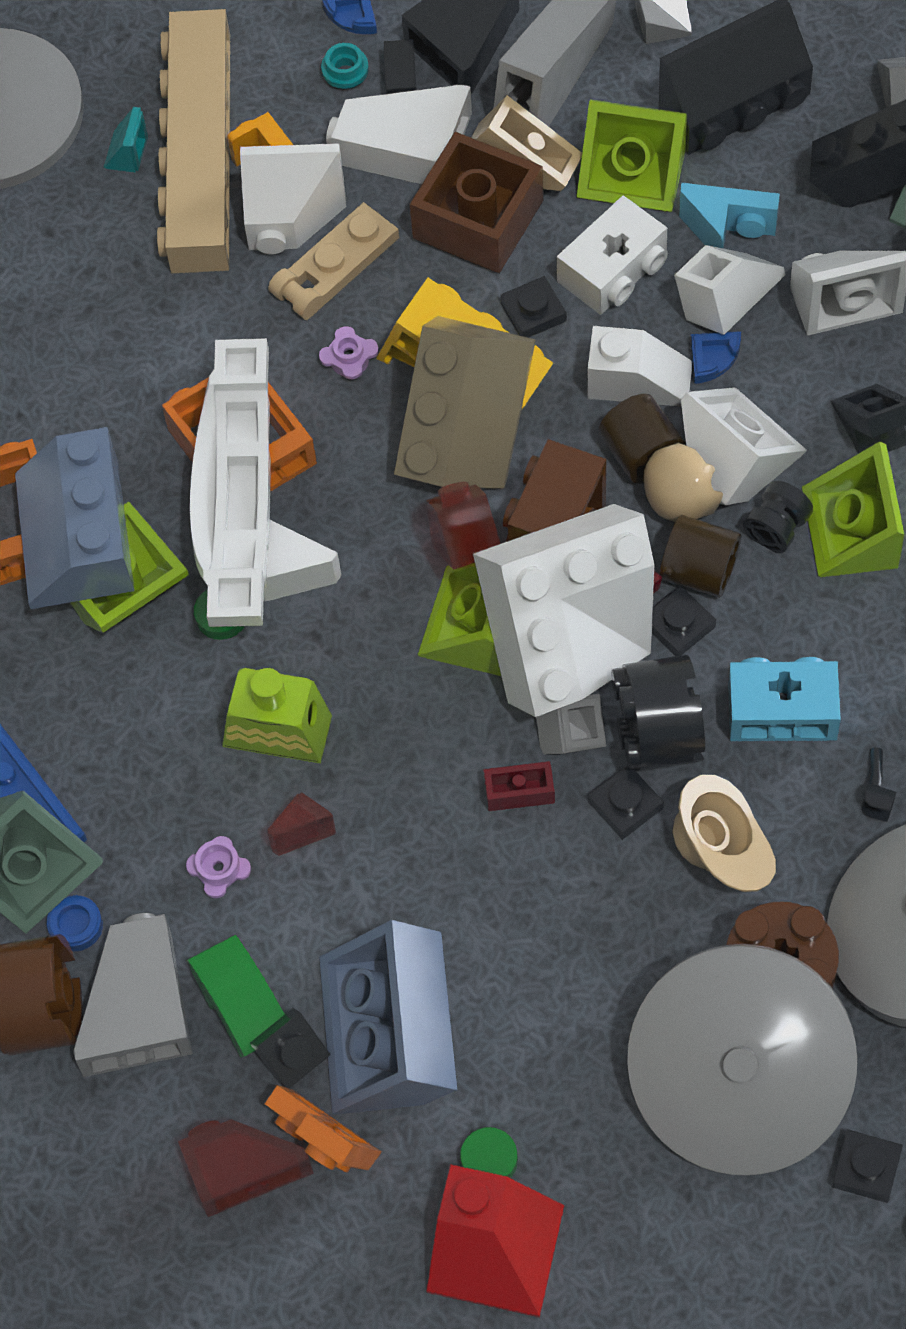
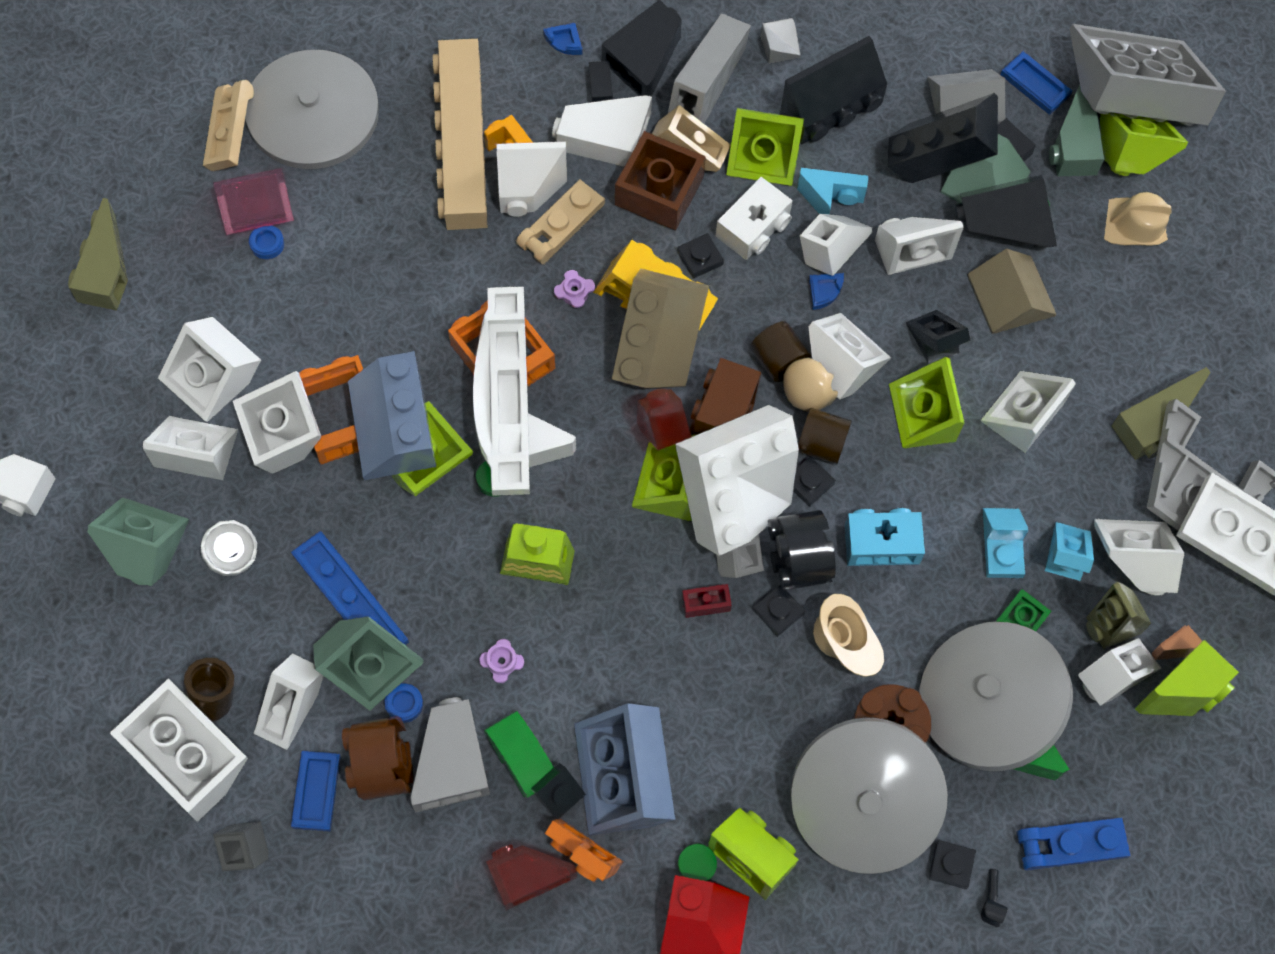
camera: 10 degrees left, 5 degrees up
(128, 143) = (411, 135): teal slope -> none
(300, 825) = (558, 631): clear red slope -> none
(342, 55) = (561, 70): teal plate -> none
(568, 1138) = (753, 852): none -> lime slope
(633, 364) = (773, 300): white slope -> none
(775, 520) = (874, 407): black wheel -> none
(877, 800) = (948, 607): black hand -> none

